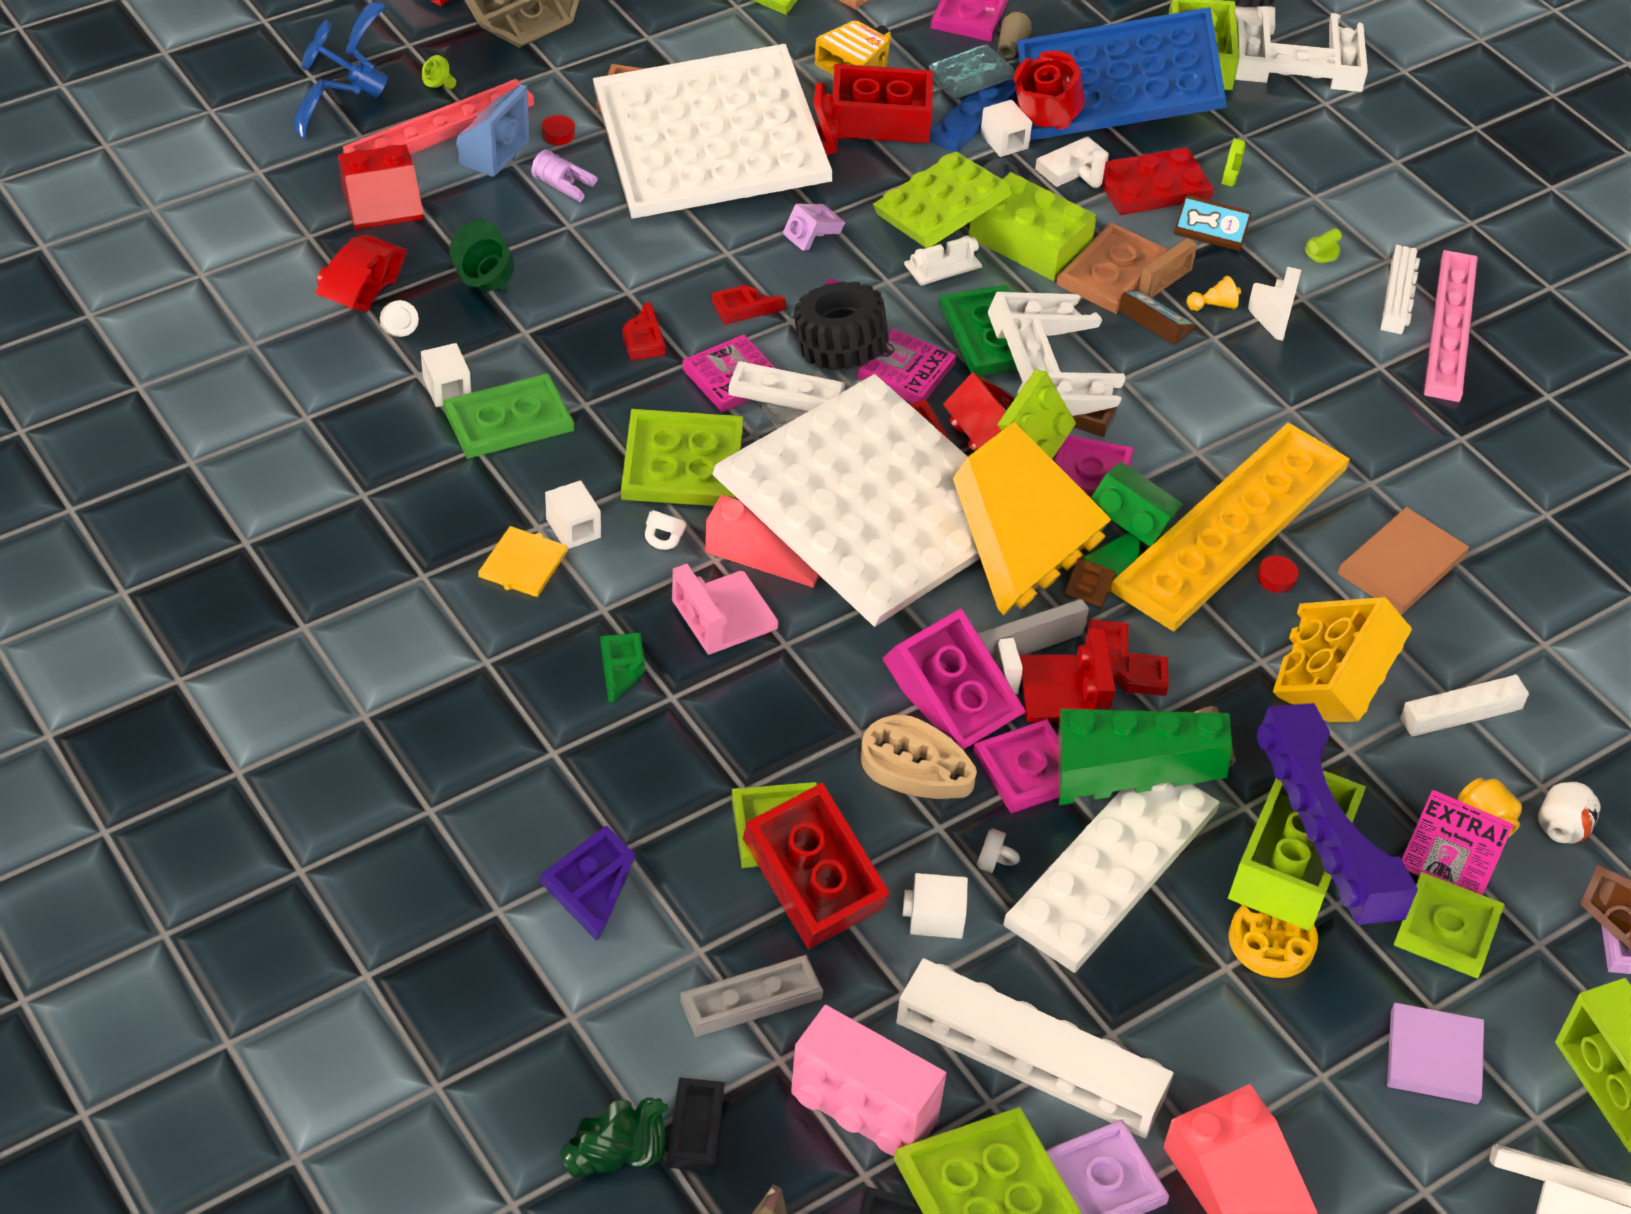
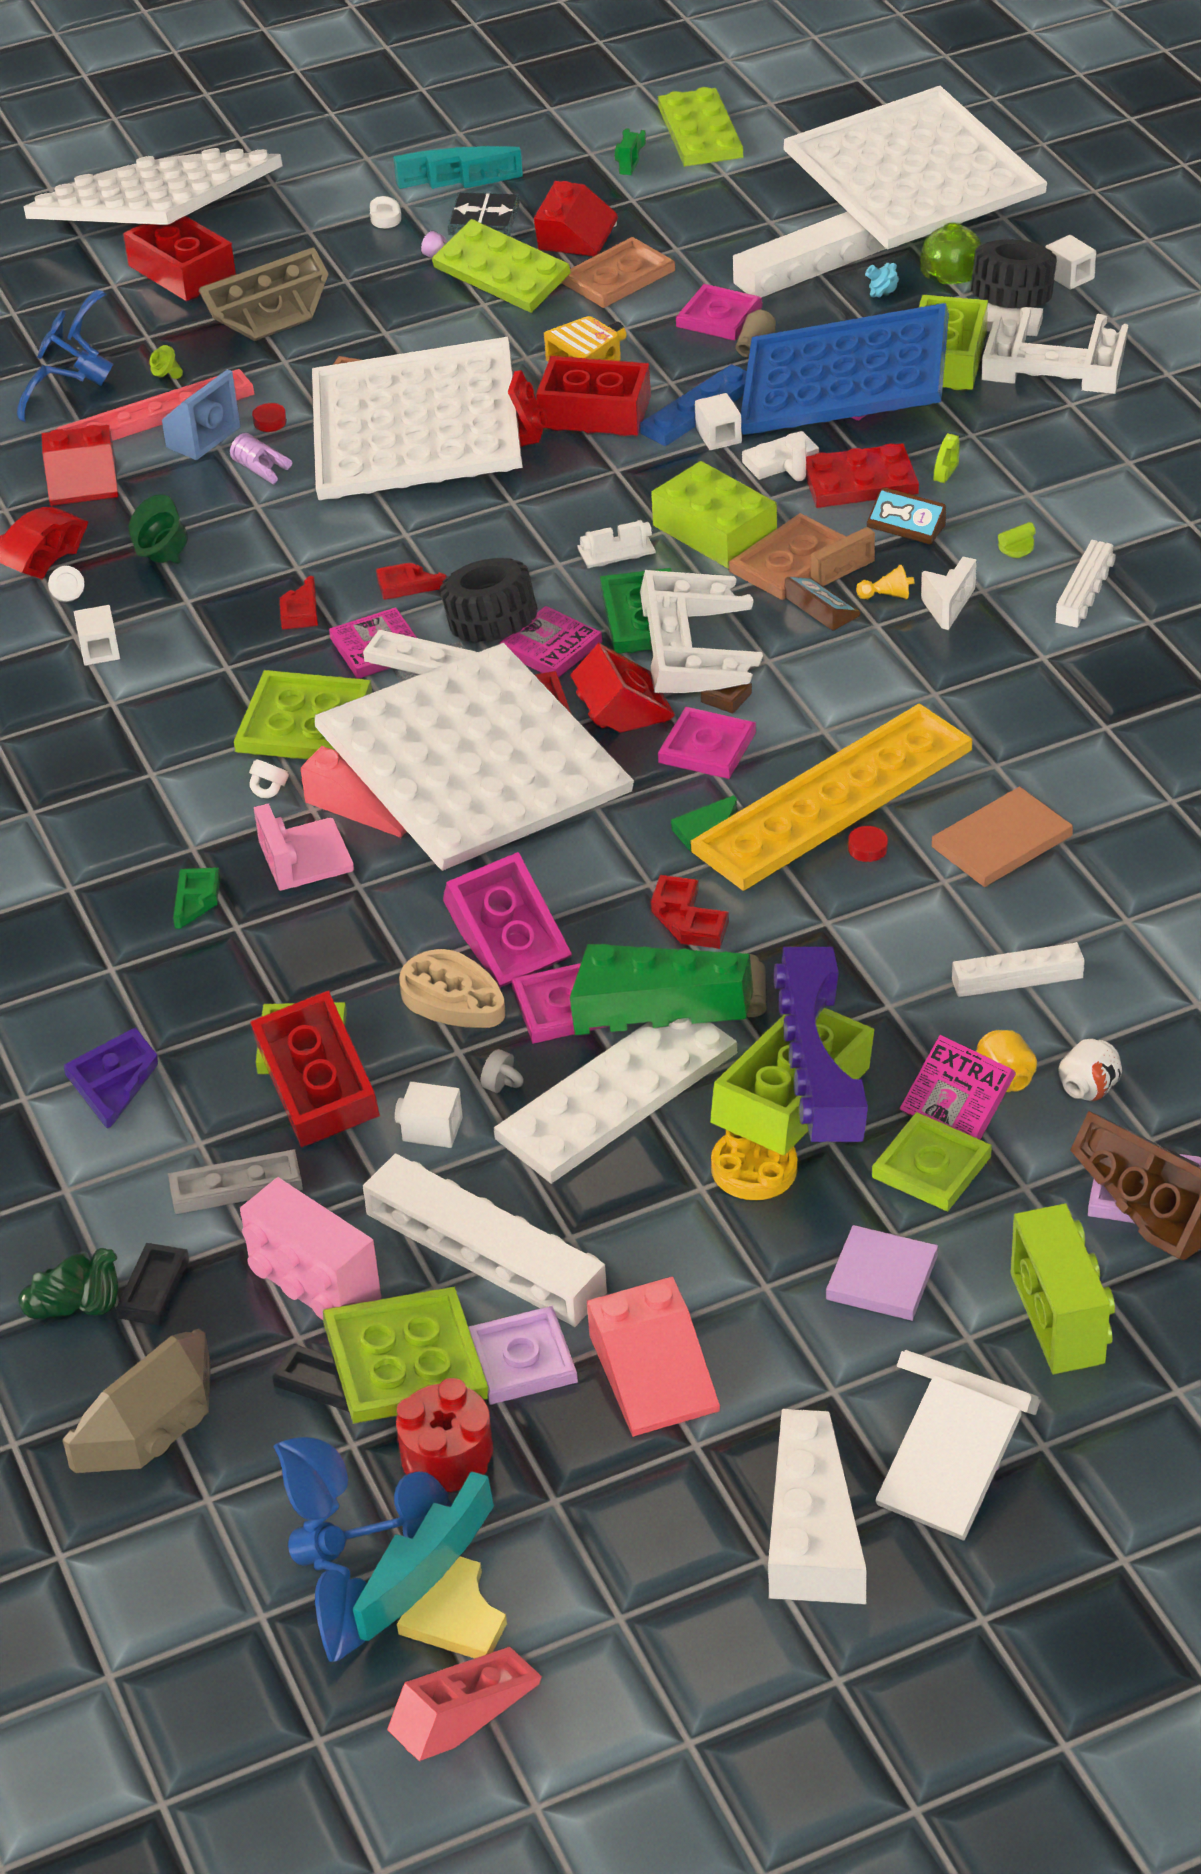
camera: 15 degrees right, 5 degrees down
(508, 415) = (149, 674): bright green tile -> none
(523, 561) = (128, 803): yellow piece -> none
(573, 514) = (182, 762): white brick -> none
(811, 221) = (493, 503): lavender bracket -> none
(942, 199) = (624, 484): lime plate -> none
(971, 71) = (698, 366): clear light blue tile -> none
(1009, 662) = (563, 910): white tile -> none
(1024, 516) = (616, 776): yellow slope -> none
(1040, 413) = (653, 693): lime plate -> none
(1040, 629) = (597, 883): light grey tile -> none
(1050, 89) = (762, 382): red brick -> none
(1068, 680) = (618, 924): red bracket -> none
(1090, 583) = (669, 843): reddish brown tile -> none
(1136, 503) = (731, 769): green brick -> none
(1341, 655) = (900, 918): yellow wedge -> none
(1451, 326) = (1130, 620): bright pink tile -> none

